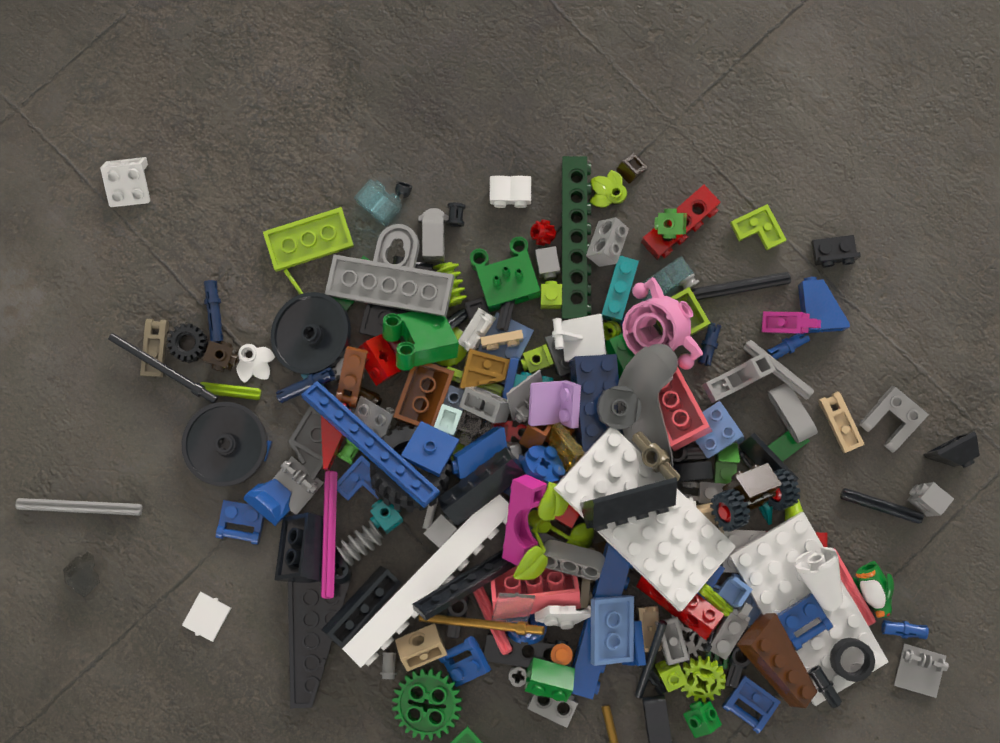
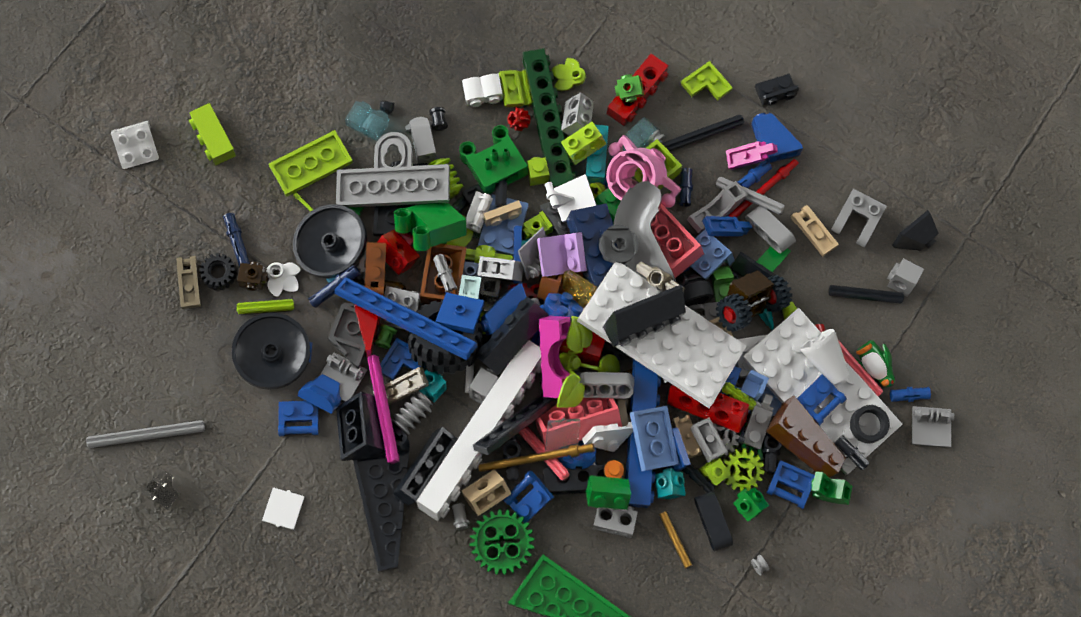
camera: 20 degrees left, 10 degrees down
(196, 388) = (236, 308): black bar -> none
(209, 186) = (211, 134): none -> lime brick
(358, 513) = (405, 385): none -> dark tan tile
(424, 398) = (444, 273): none -> light grey axle
(483, 369) = (491, 241): pearl gold wing -> none
(522, 681) = (573, 503): light grey bush -> none
(546, 195) = (515, 88): none -> lime plate
(547, 263) = (528, 144): light grey brick -> none
(606, 278) = (583, 143): none -> lime brick
(619, 679) = (670, 484): none -> teal brick
(631, 168) = (584, 53): dark brown slope -> none
(650, 659) = (693, 460): black bar -> none
(743, 401) = (725, 226): none -> blue hinge
(793, 721) = (830, 489): none -> green brick
(819, 349) = (780, 174): none -> red bar

